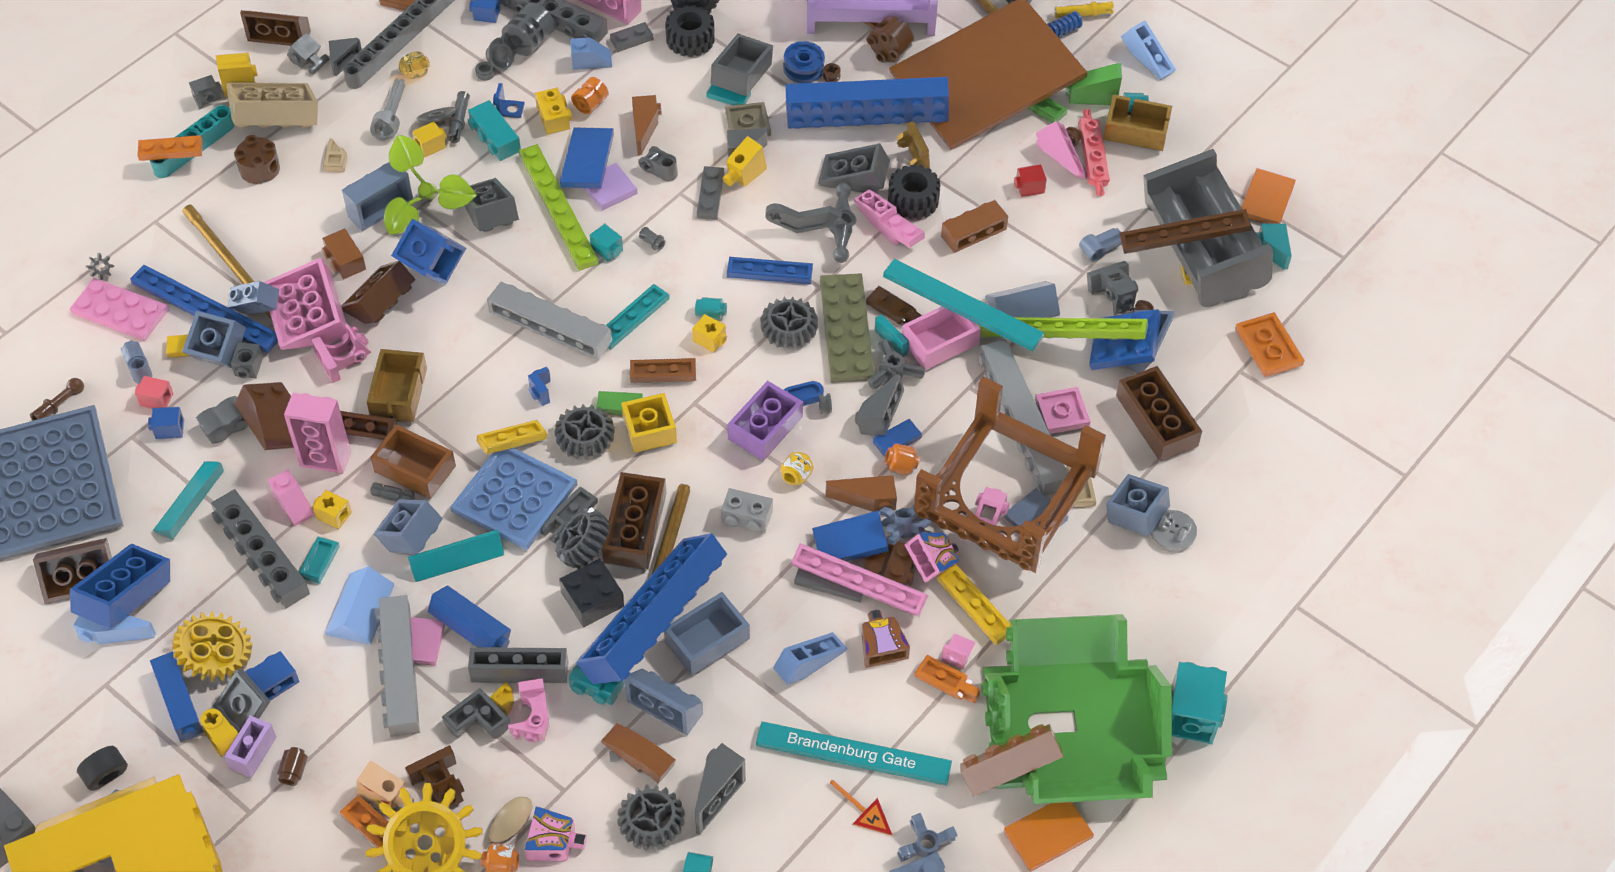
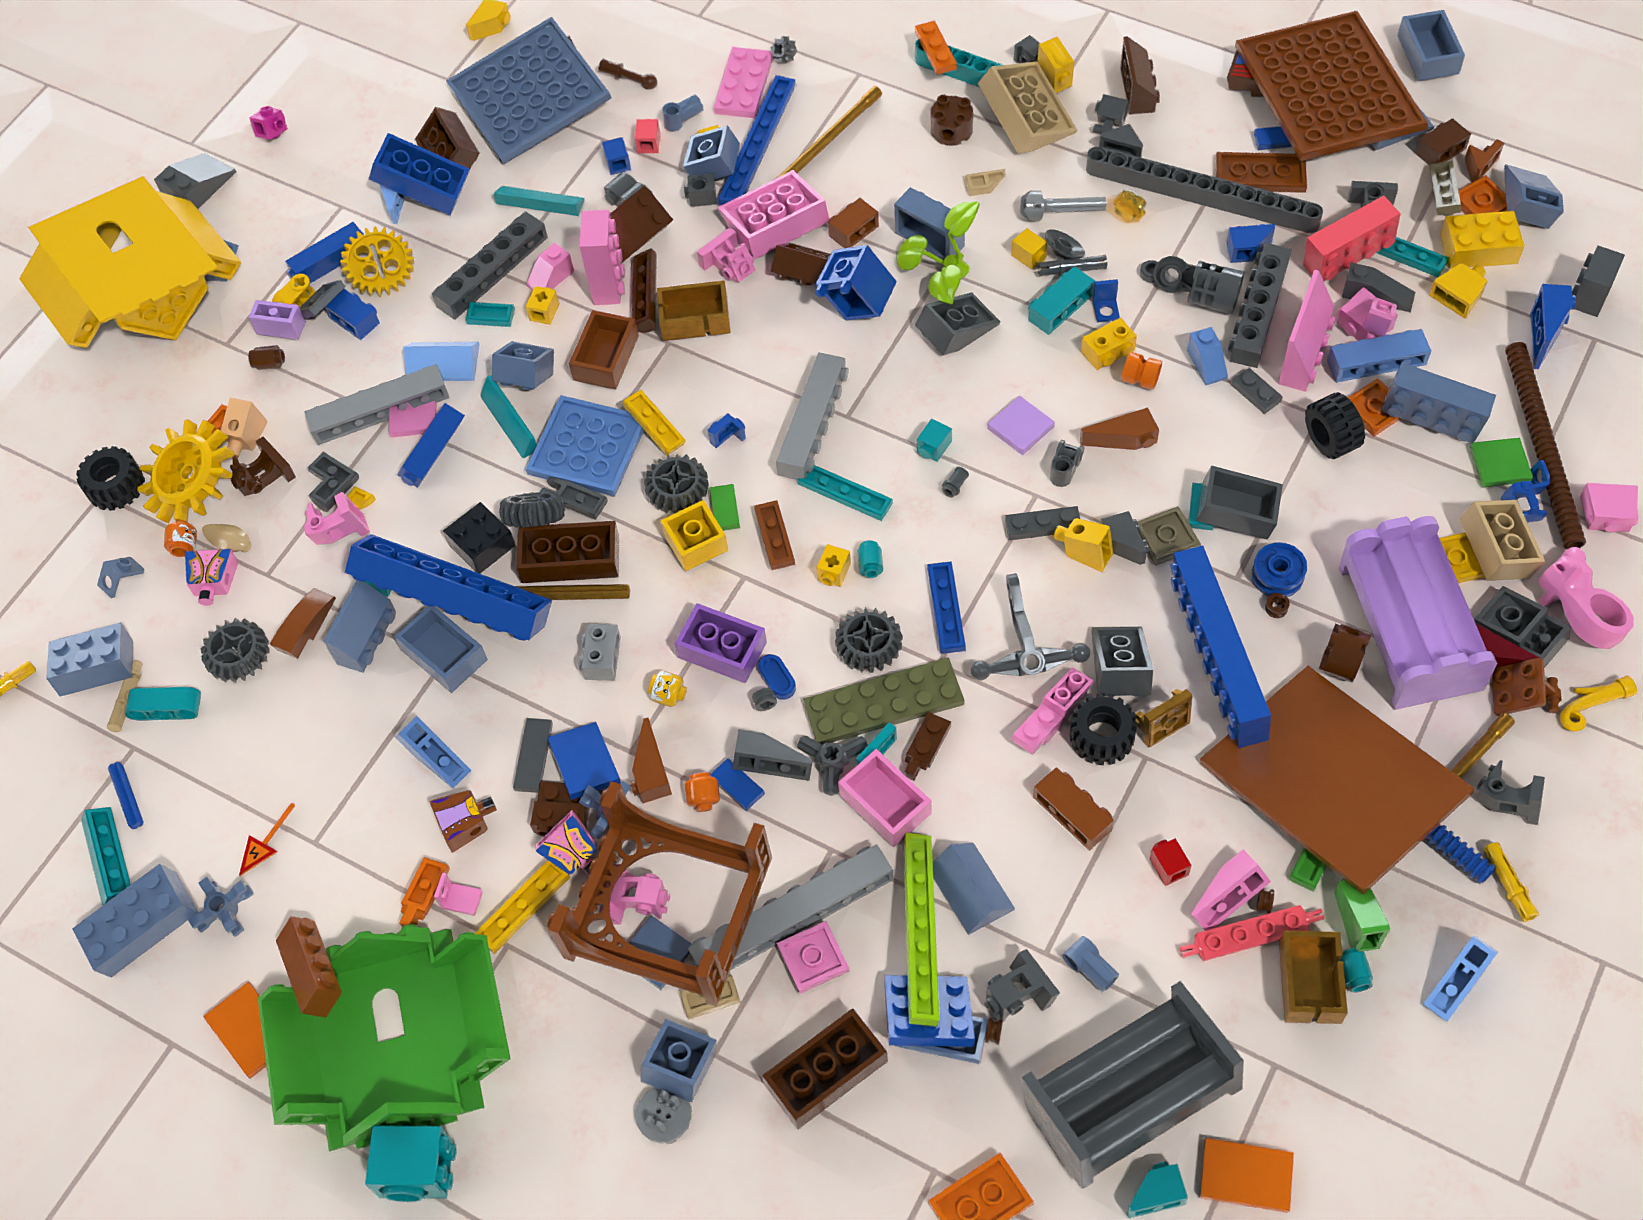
camera: 85 degrees right, 5 degrees up
(102, 767) = (249, 226): black tyre -> none
(253, 298) = (766, 166): sand blue brick -> none
(391, 492) = (575, 334): dark grey axle -> none
(517, 664) = (384, 495): dark grey brick -> none
(558, 207) = (978, 385): lime plate -> none
(587, 158) = (1050, 392): blue tile -> none
(690, 31) = (1284, 426): black tyre -> none
(720, 781) = (264, 693): dark grey slope -> none
(854, 753) = (326, 822): teal tile -> none
(859, 580) = (528, 779): bright pink tile -> none
(963, 305) = (919, 809): teal tile -> none
(1185, 231) = (1106, 1053): reddish brown plate -> none

